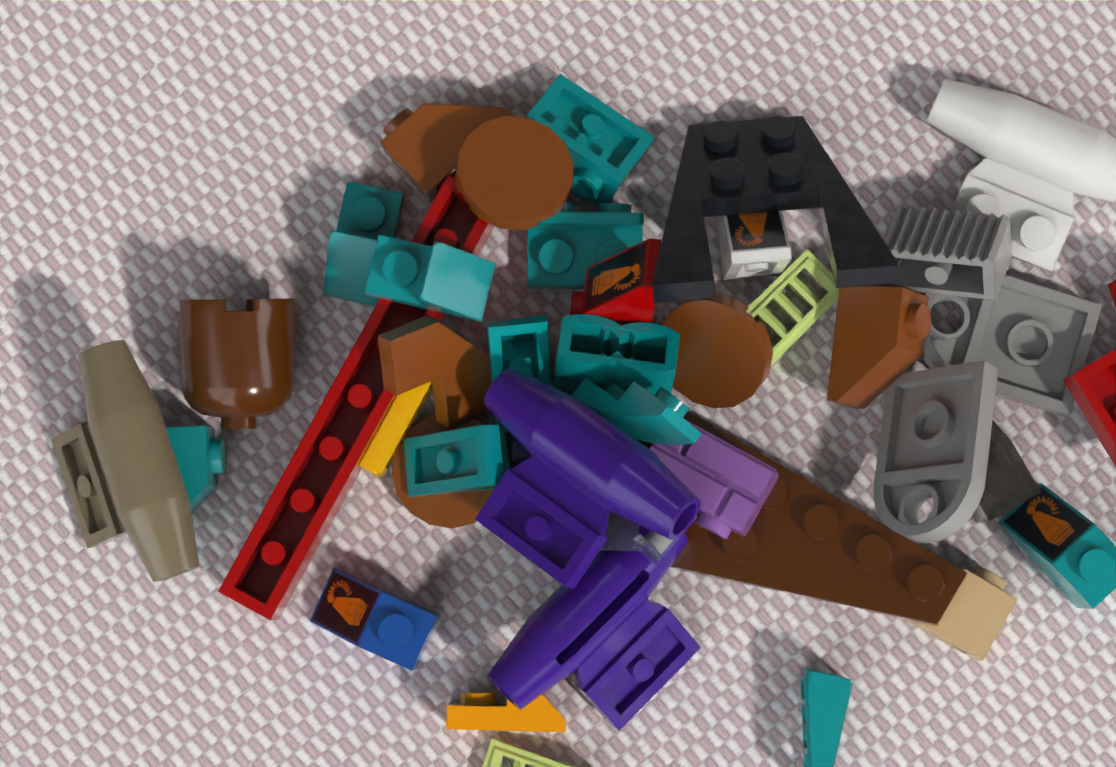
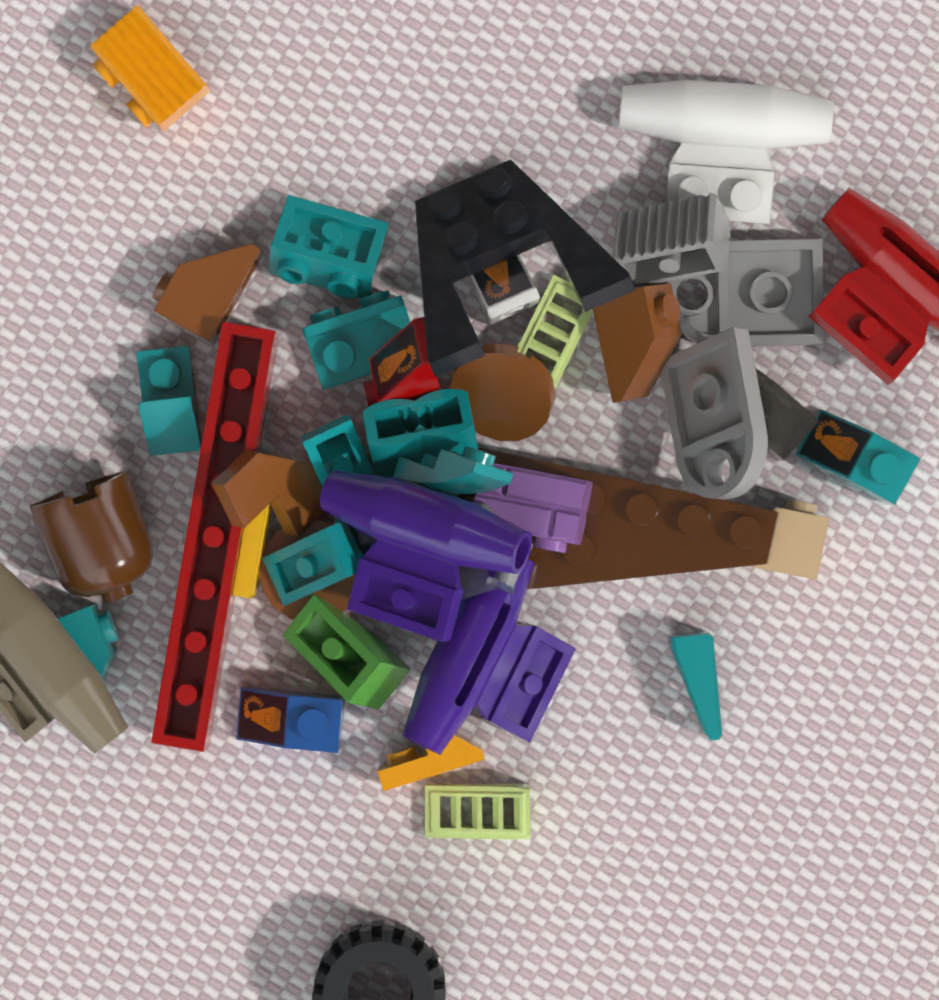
camera: 15 degrees left, 5 degrees up
(430, 277) = (238, 416): teal slope -> none
(457, 569) = (346, 654): none -> bright green slope
(514, 172) = (278, 300): dark orange tile -> none

